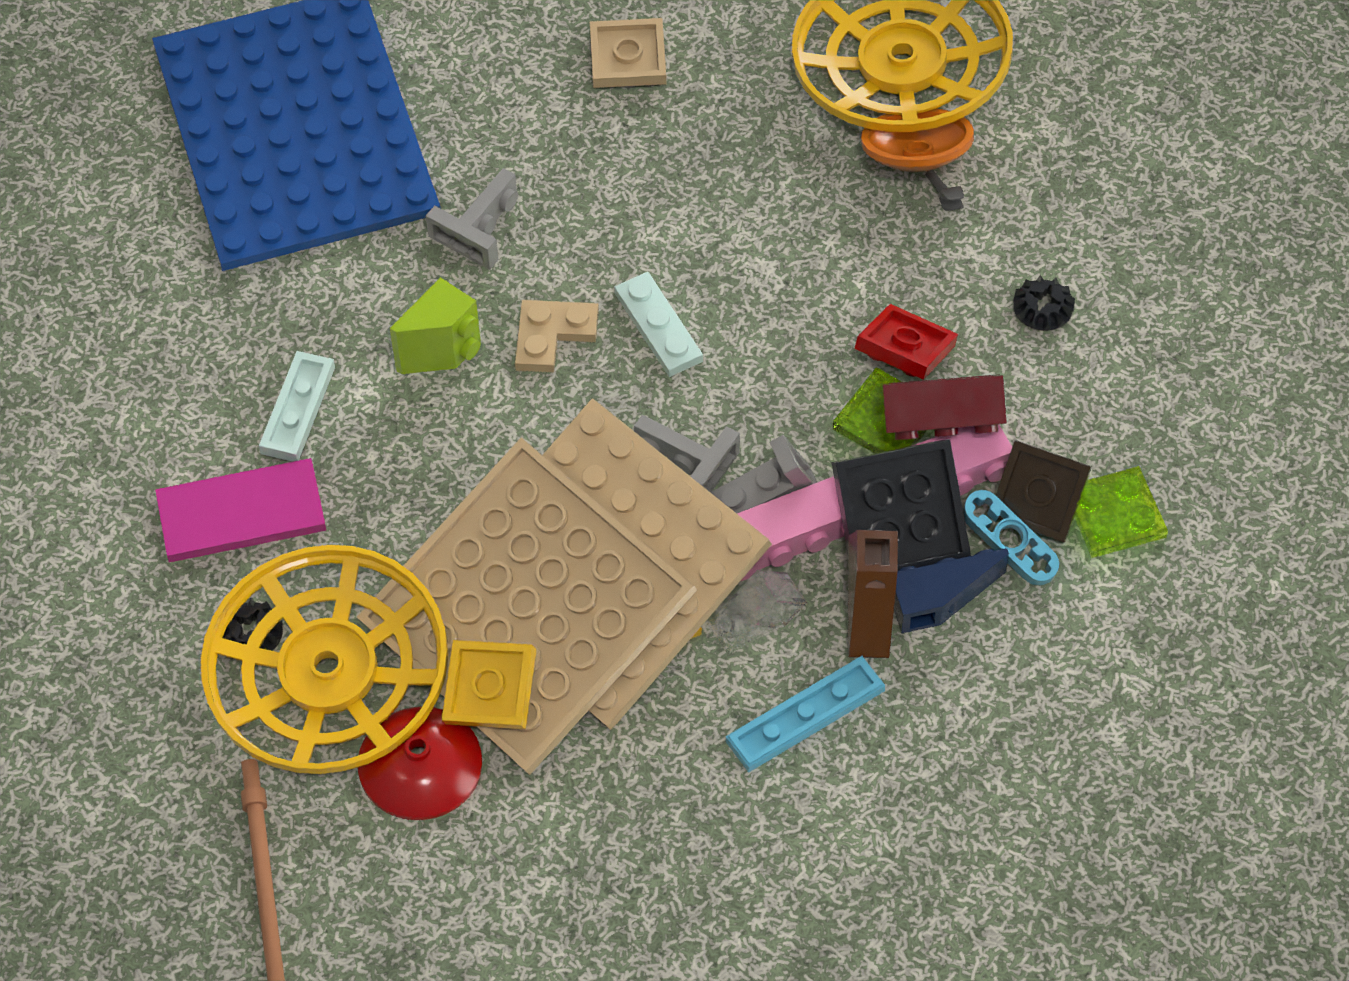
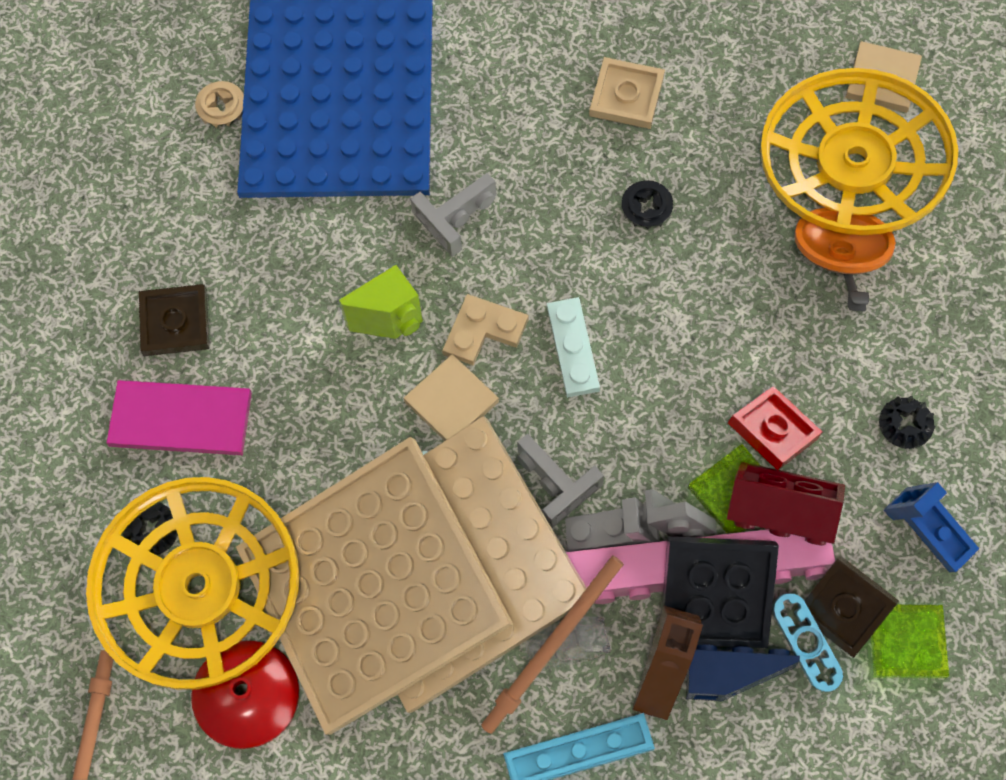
camera: 20 degrees right, 10 degrees up
(169, 165) = (207, 102): none -> tan gear
(197, 412) = (173, 320): none -> dark brown plate
(297, 406) = (254, 338): light aqua plate -> none
(489, 684) = (316, 651): yellow plate -> none
(539, 408) = (450, 398): none -> tan tile
(680, 149) = (642, 192): none -> black gear
(714, 679) = (510, 698): none -> nougat bar
(829, 446) = (676, 518): none -> light grey bracket
(1104, 389) = (933, 524): none -> blue bracket

